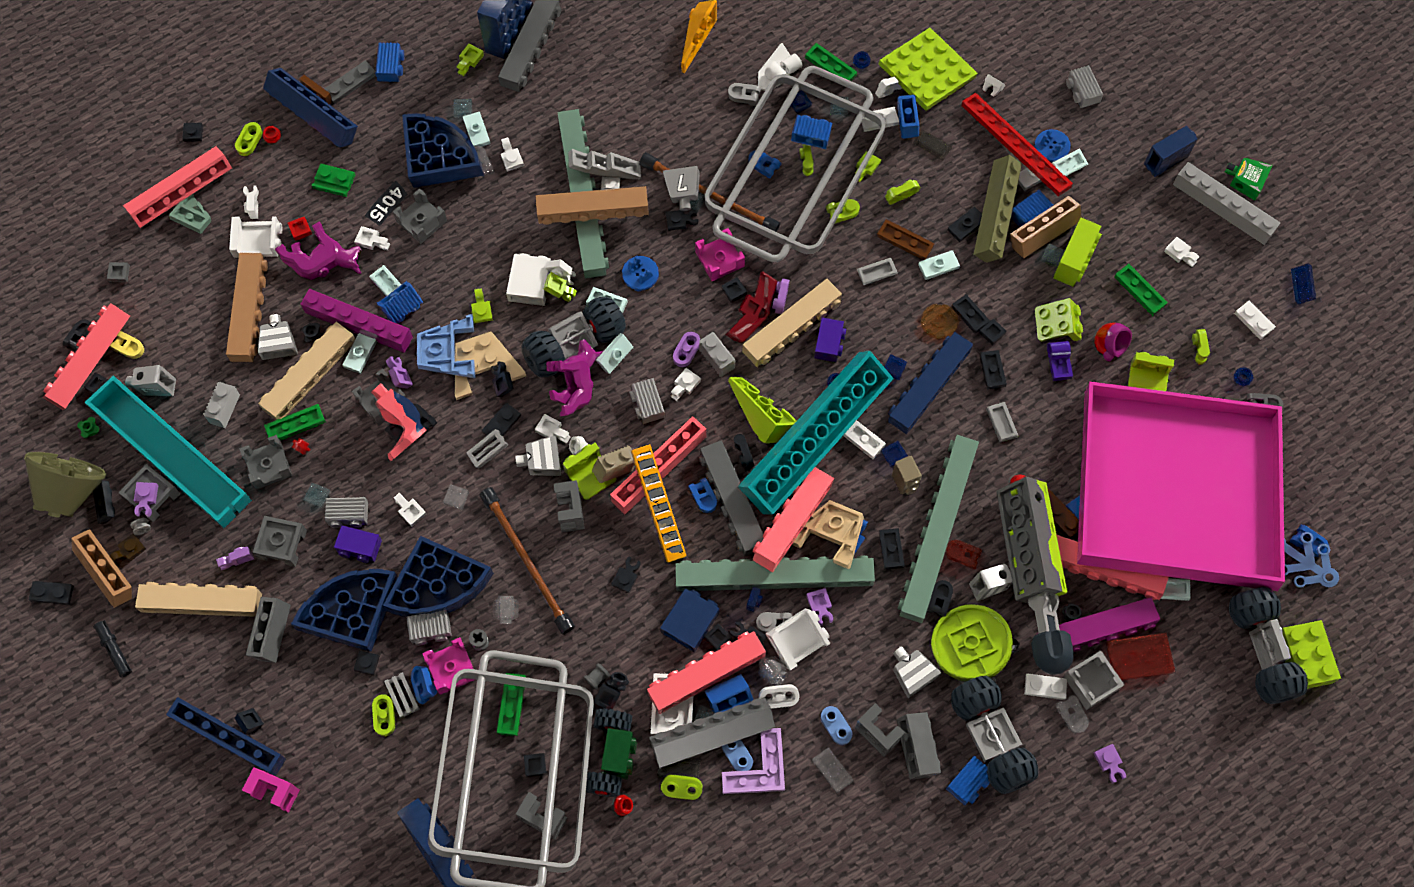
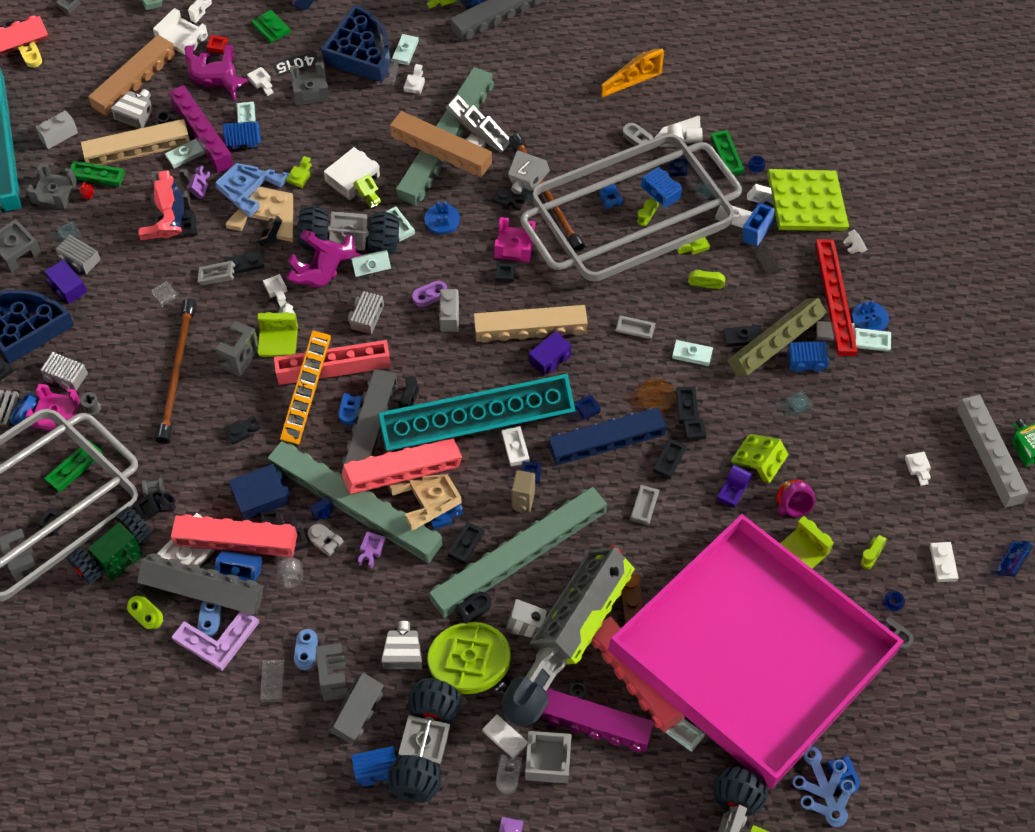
camera: 35 degrees right, 10 degrees down
(152, 381) = (21, 82): light grey torso -> none
(409, 510) = (124, 282): white plate -> none
(436, 581) = (95, 340): dark blue brick -> none
(462, 107) = (408, 28): clear light blue tile -> none
(505, 609) = (129, 394): clear head -> none
(541, 457) = (250, 302): light grey torso -> none
(561, 269) = (380, 178): white plate -> none
(613, 464) = (294, 338): dark tan brick -> none
(623, 805) = (94, 597): red plate -> none
(685, 383) = (409, 318): white plate -> none
(754, 309) = (509, 296): dark red plate -> none
(762, 416) = (447, 373): lime wedge -> none
(778, 695) = (279, 595): white plate -> none
(782, 289) = (540, 298): medium lavender plate -> none
(798, 637) = (329, 559): white panel -> none
(849, 211) = (652, 268): lime plate -> none
(905, 240) = (679, 317): reddish brown plate -> none
(956, 550) = (519, 579): clear red plate -> none
(1046, 226) = (808, 374): medium nougat brick -> none
(1078, 252) = (818, 408): lime brick -> none
(1084, 86) = (936, 287): light grey brick -> none
(1140, 289) = (855, 474): green plate -> none
(1141, 656) = (607, 767): clear red plate -> none
(1170, 151) = (972, 378): dark blue brick -> none

